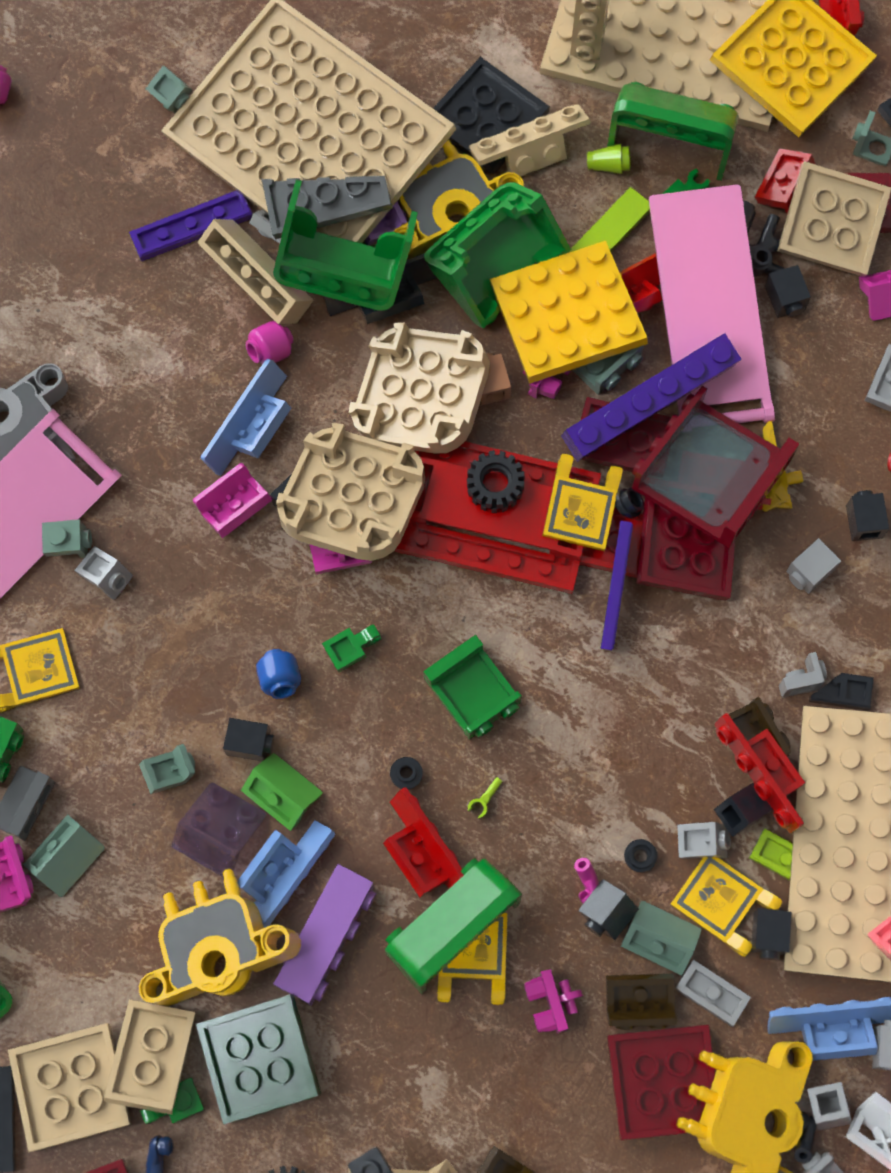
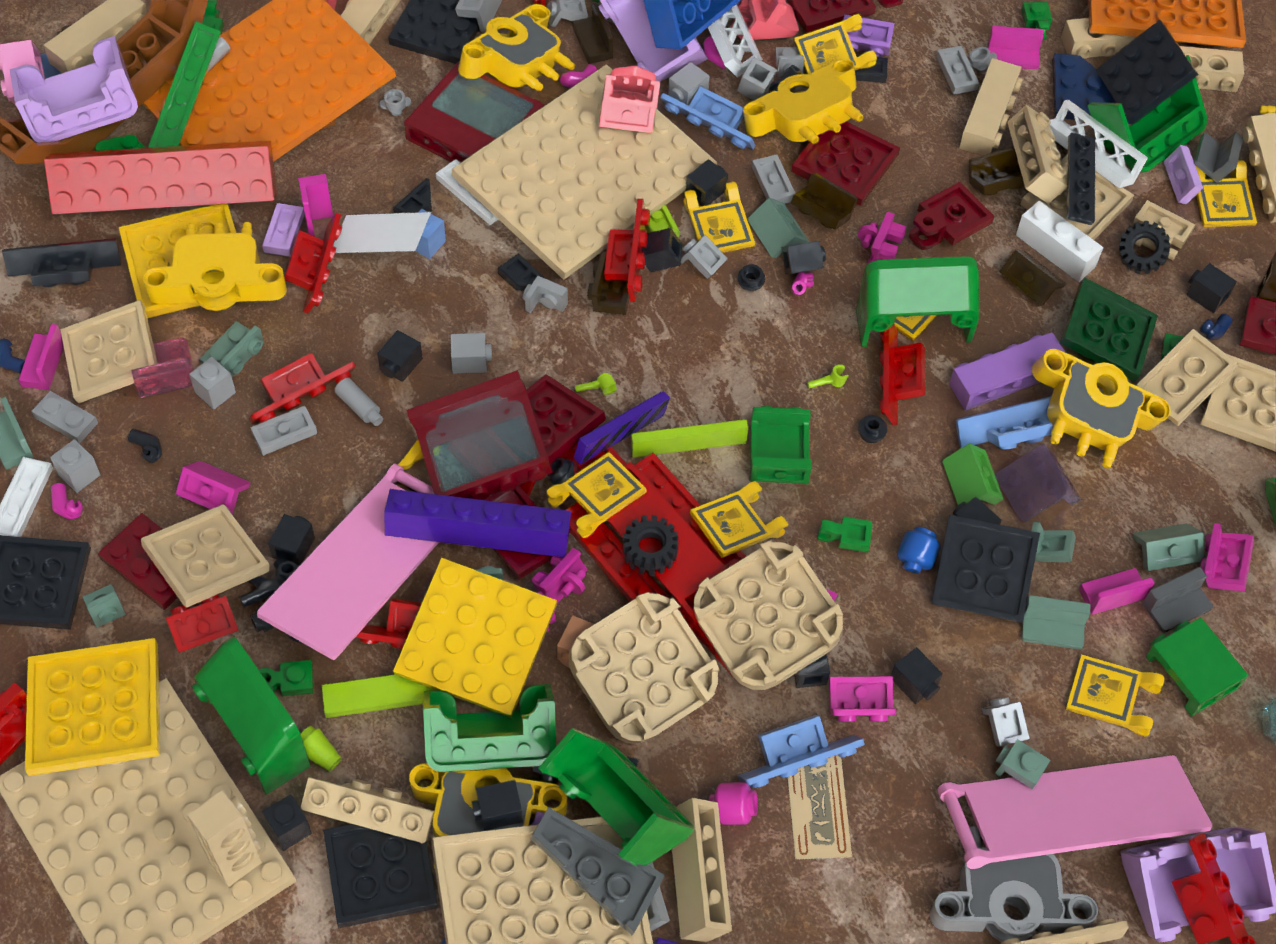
camera: 145 degrees left, 15 degrees down
(84, 769) = (1115, 590): none -> dark pink panel
(118, 697) = (1055, 622): none -> sand green panel
(199, 393) = (819, 811): none -> tan sticker
(200, 554) = (917, 676): none -> black brick
(206, 691) = (985, 568): none -> black plate
(377, 1081) = (1031, 276): none -> dark brown panel
(395, 1142) = (1059, 241): none -> white brick
(433, 193) = (497, 805): none -> black brick
(452, 575) = (733, 523): none -> yellow flag
(510, 1073) = (937, 221): none -> dark red plate
(546, 422) = (564, 577): none -> dark pink hips
(555, 631) = (689, 438): none -> lime tile
(579, 89) = (287, 822): none -> black brick
(673, 635) = (604, 381): none -> lime hand
(858, 451) = (359, 401): none -> light grey cylinder

